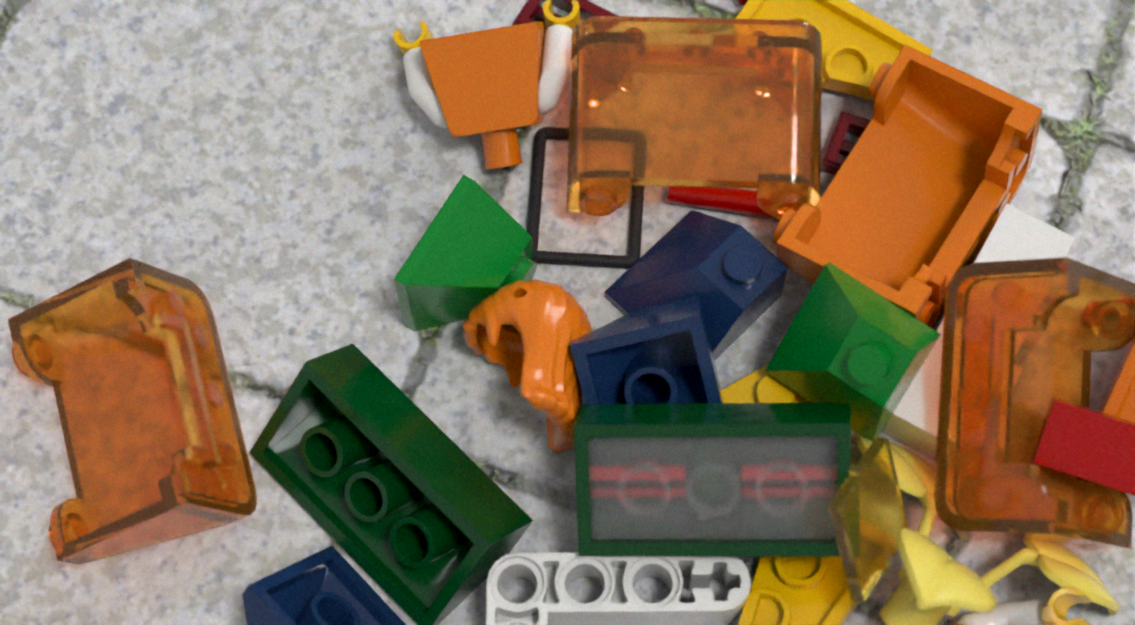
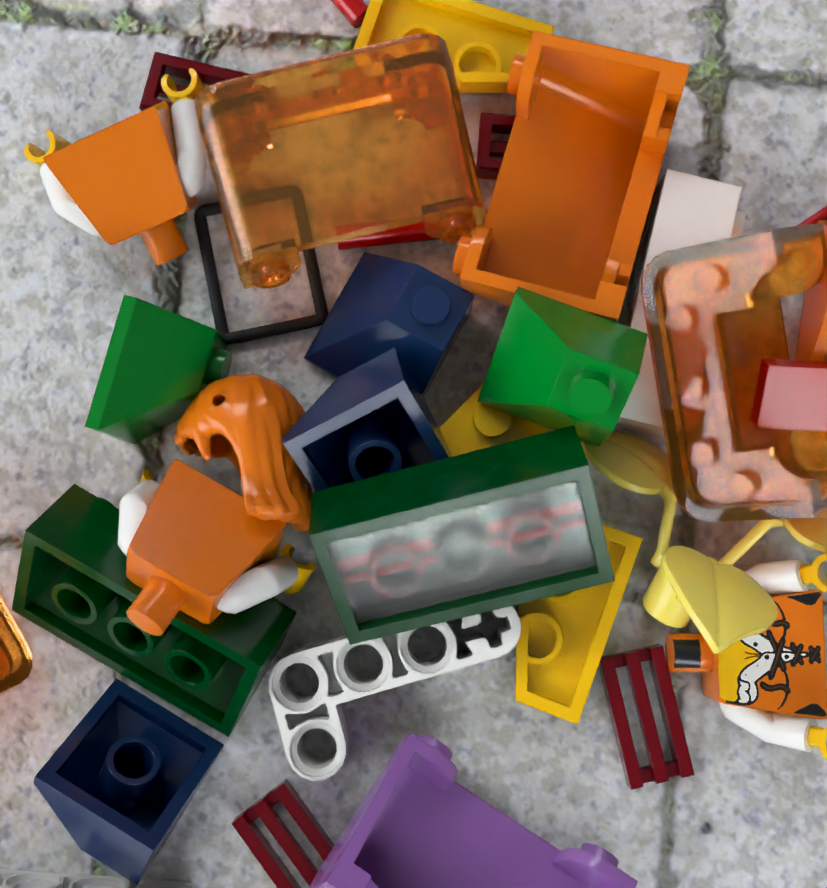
camera: 15 degrees left, 15 degrees up
(466, 426) = (199, 550): none -> orange torso
(868, 518) = (621, 539): clear yellow piece -> none

